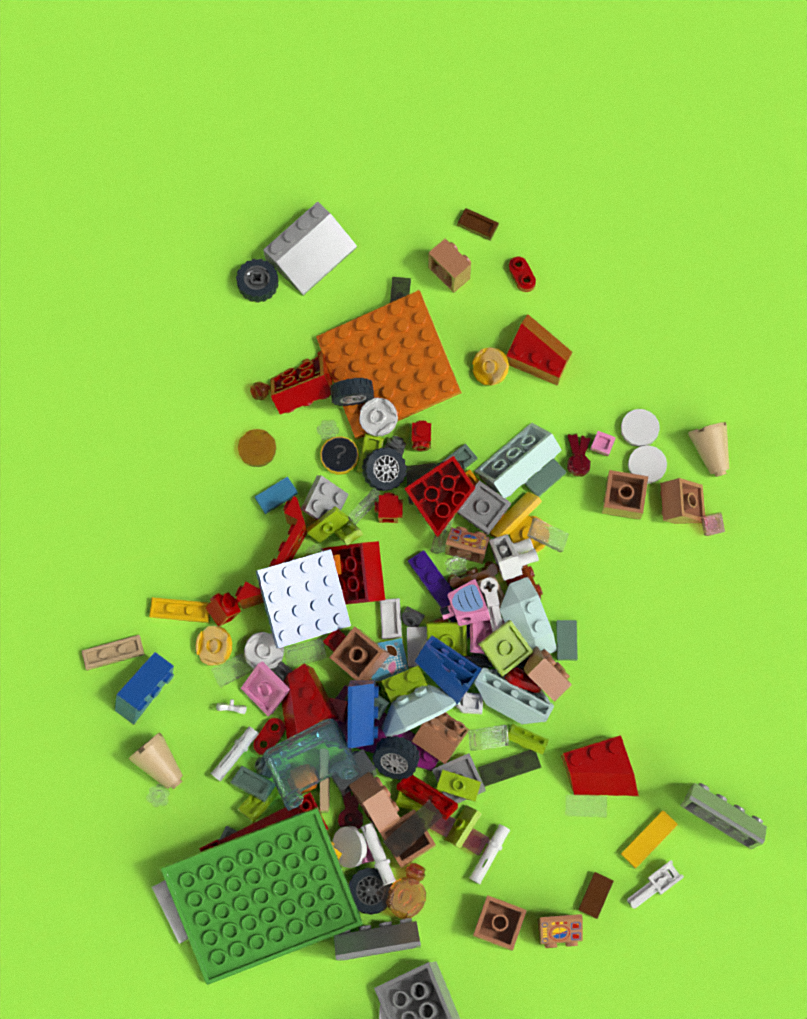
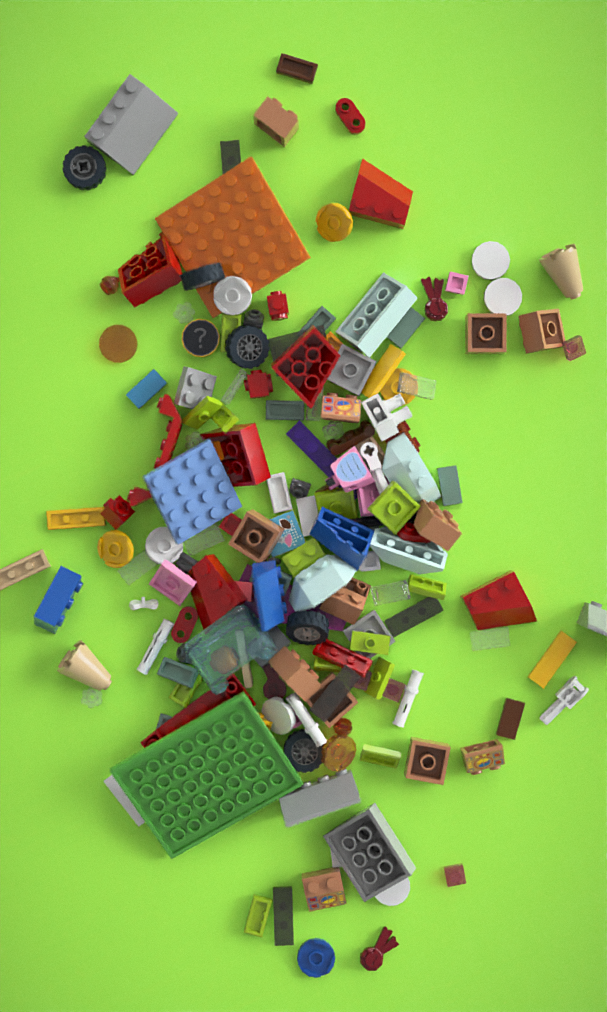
camera: 15 degrees left, 15 degrees up
(411, 538) = (284, 410): none -> sand green tile
(450, 911) = (380, 756): none -> lime plate

